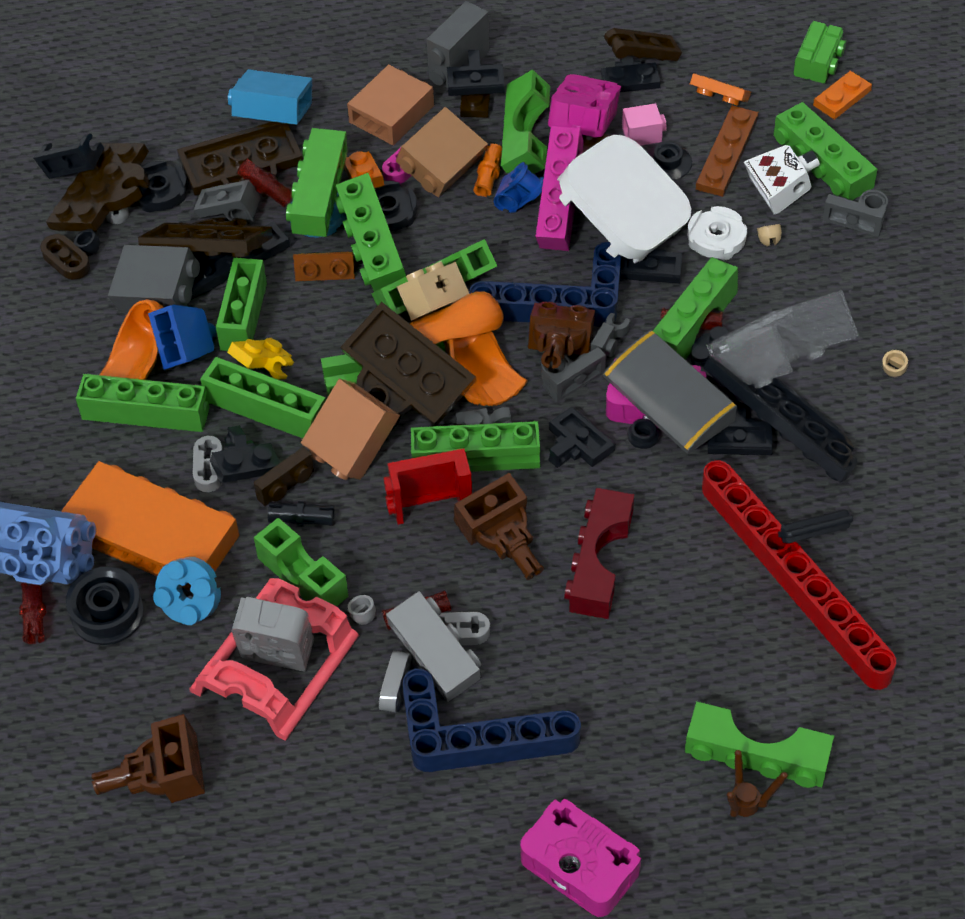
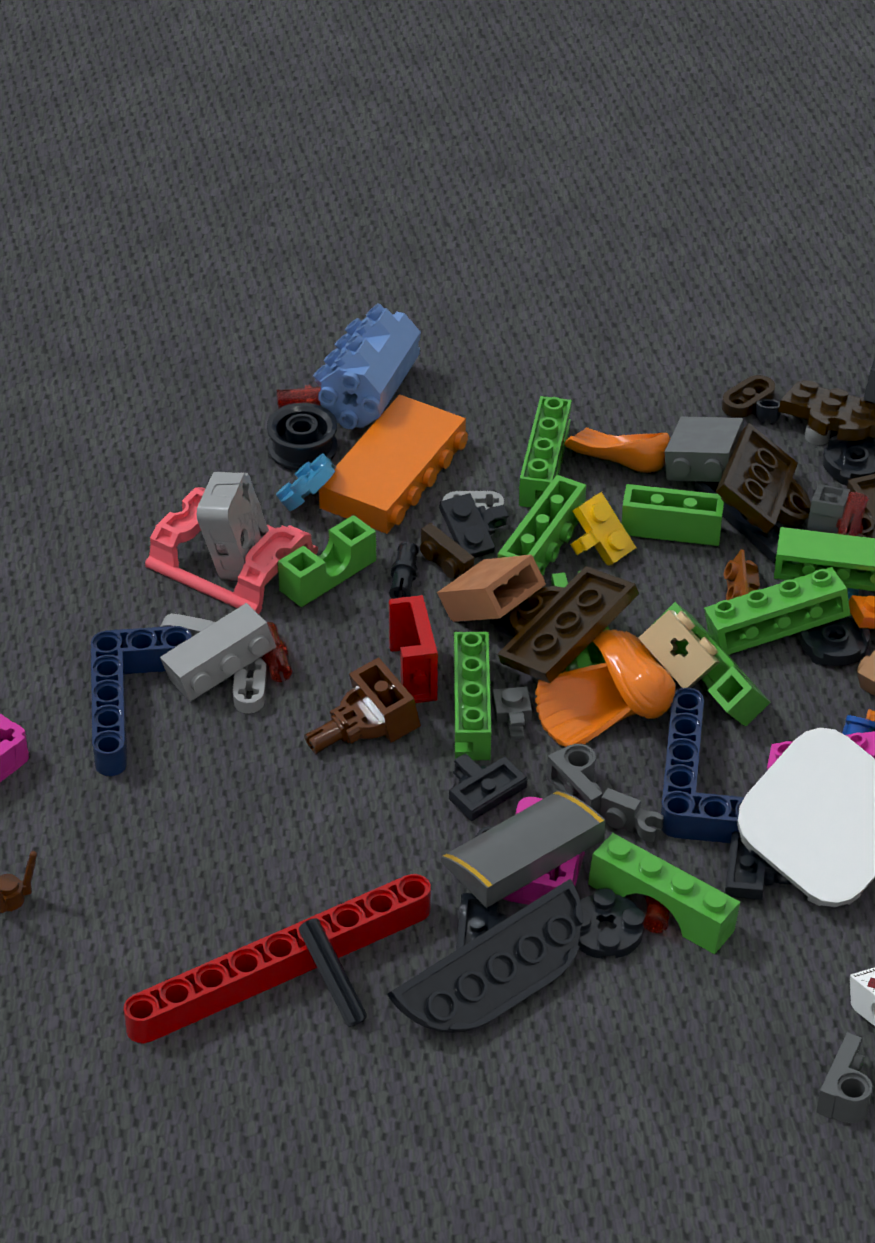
camera: 90 degrees right, 10 degrees down
(161, 765) = (124, 480): reddish brown brick -> none
(181, 334) = (621, 464): blue torso -> none
(362, 609) = (279, 611): light grey hinge -> none
(560, 331) = (623, 759): reddish brown brick -> none
(593, 585) = (284, 782): dark red arch -> none
(712, 245) = (805, 952): white plate -> none
(716, 737) = (82, 871): bright green arch -> none
(768, 232) = (807, 987): tan hinge -> none
(774, 340) = (598, 944): clear windscreen -> none
(897, 359) = (580, 1091): tan hinge -> none

